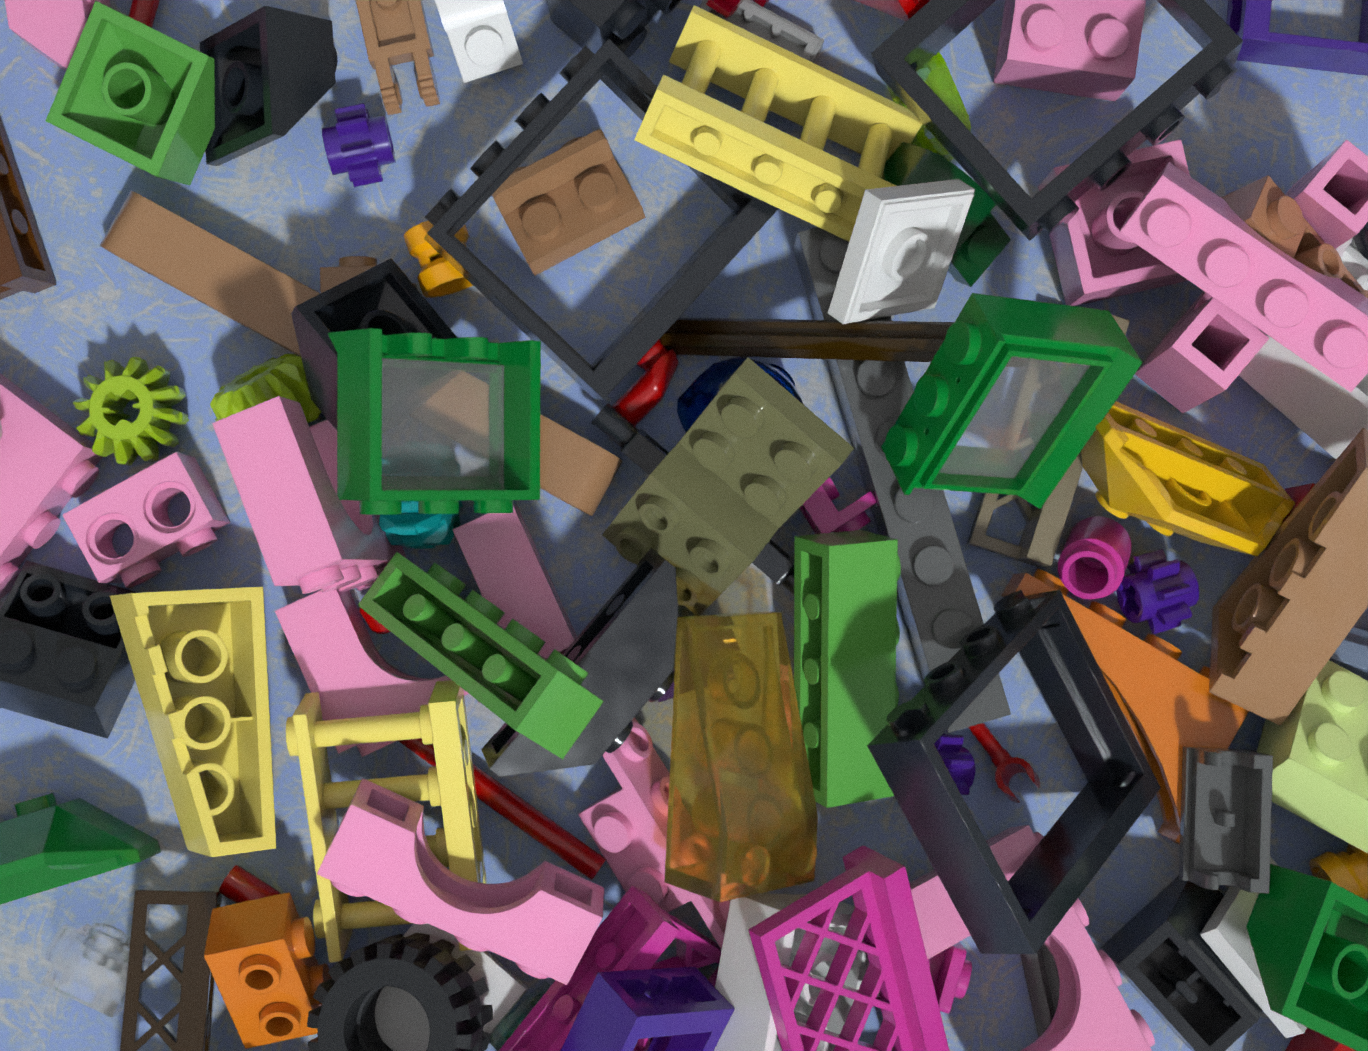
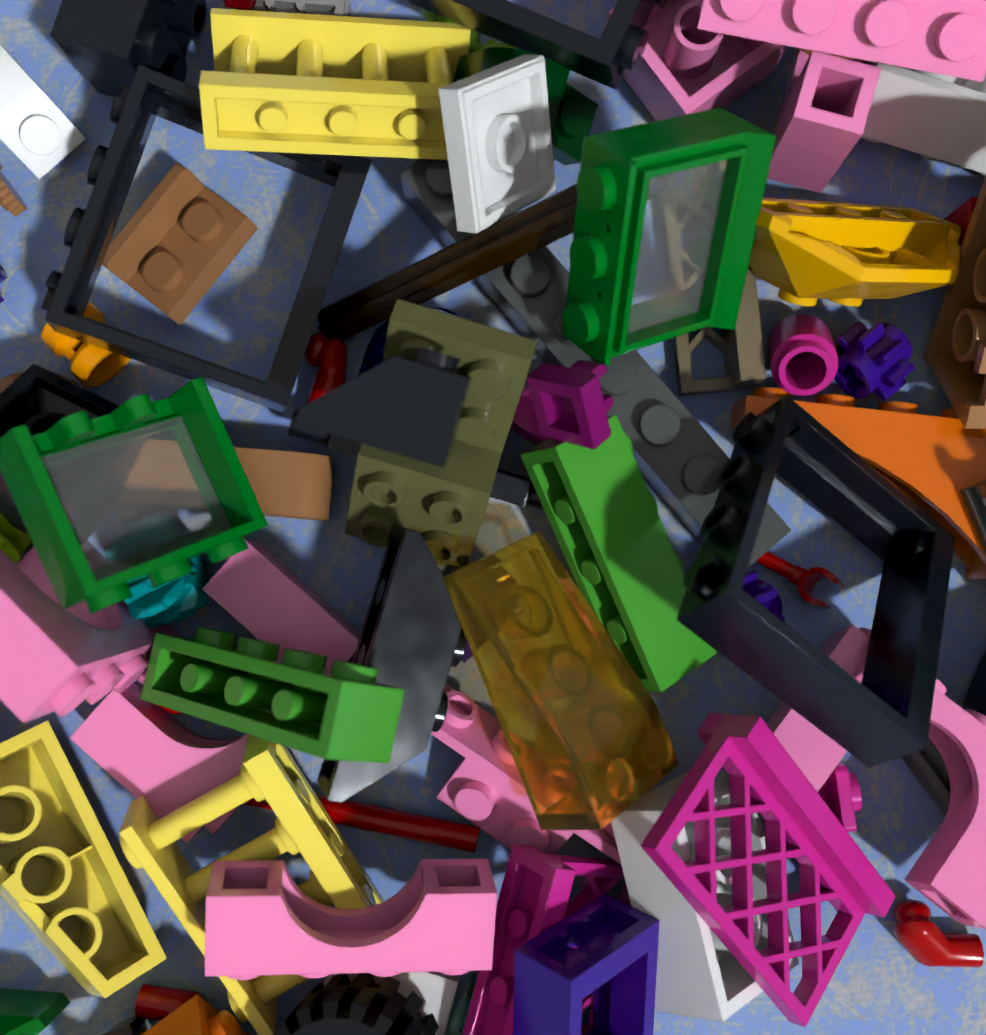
camera: 25 degrees left, 0 degrees up
(706, 454) = (397, 407): none -> black slope
(861, 513) = (571, 403): none -> magenta tile

